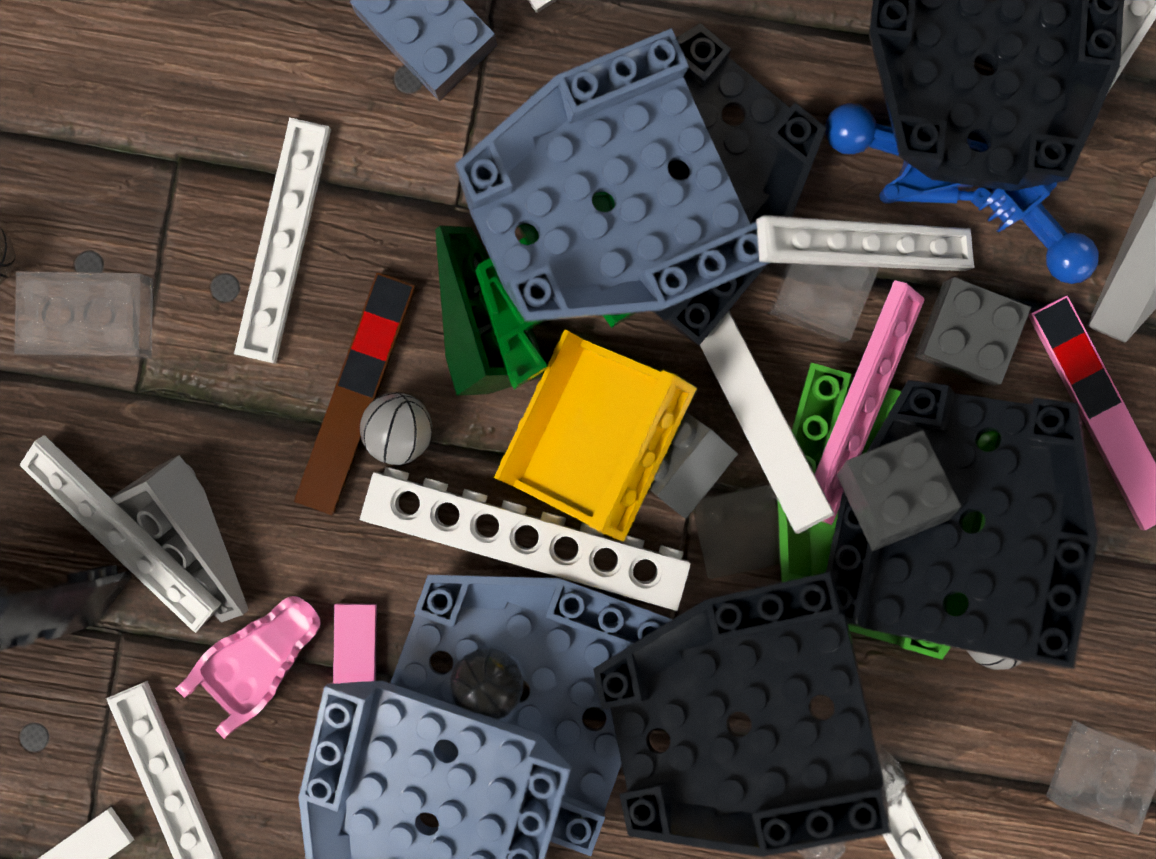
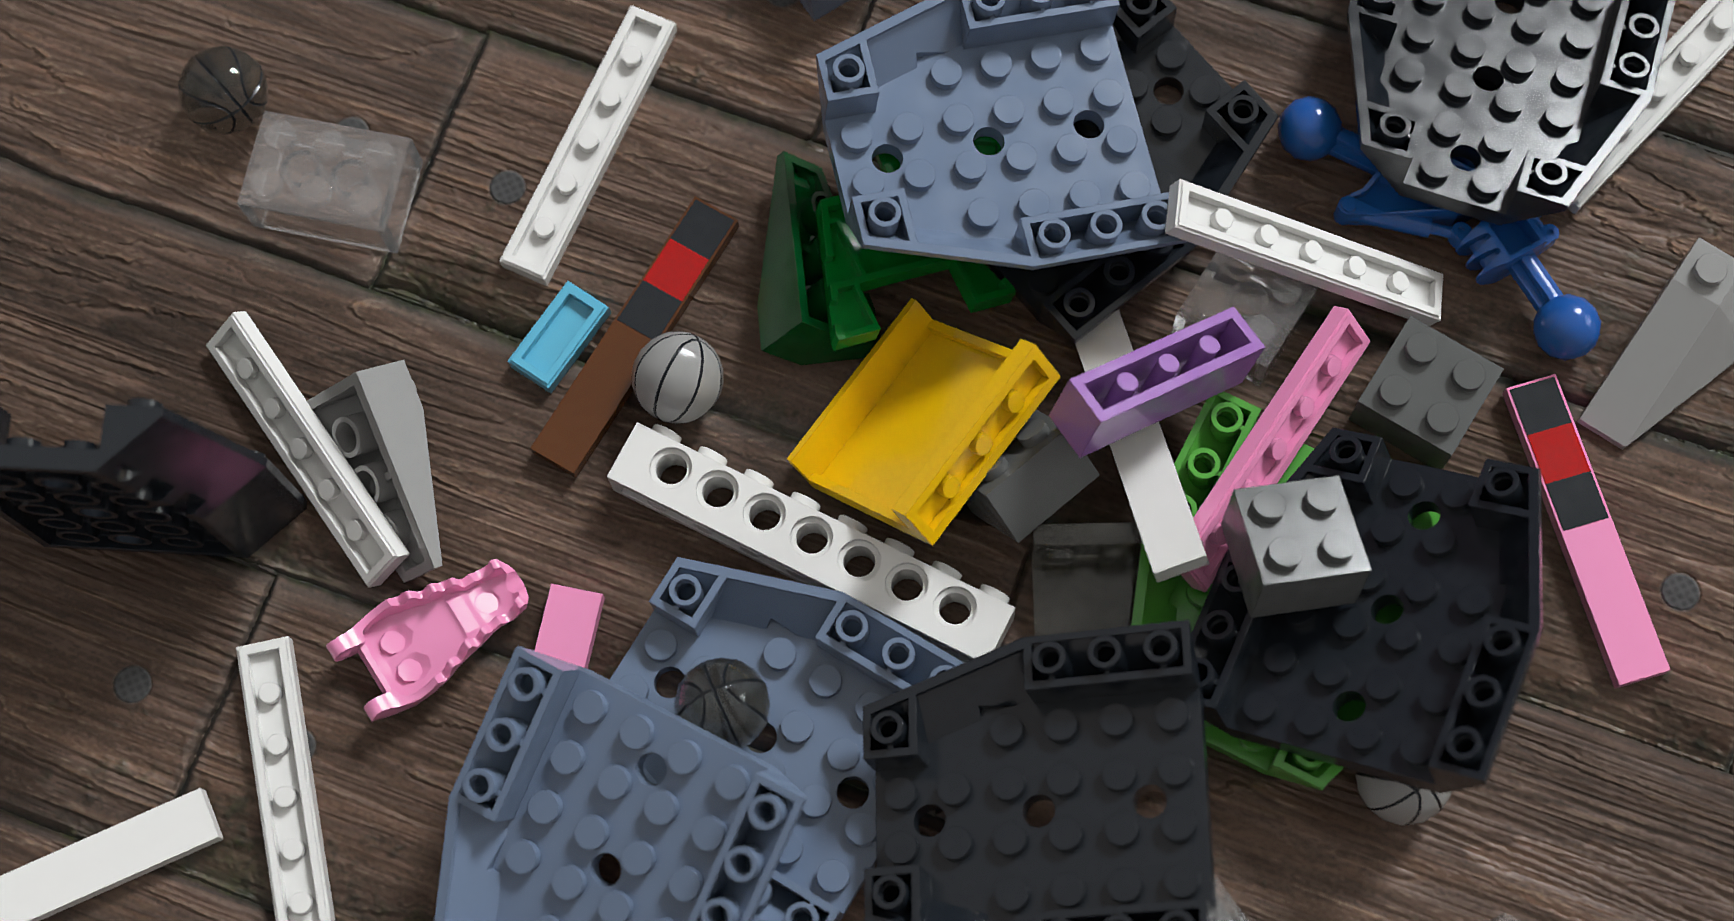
camera: 15 degrees right, 15 degrees down
(295, 405) = (559, 337): none -> medium azure tile
(772, 381) = (1156, 381): none -> medium lavender brick

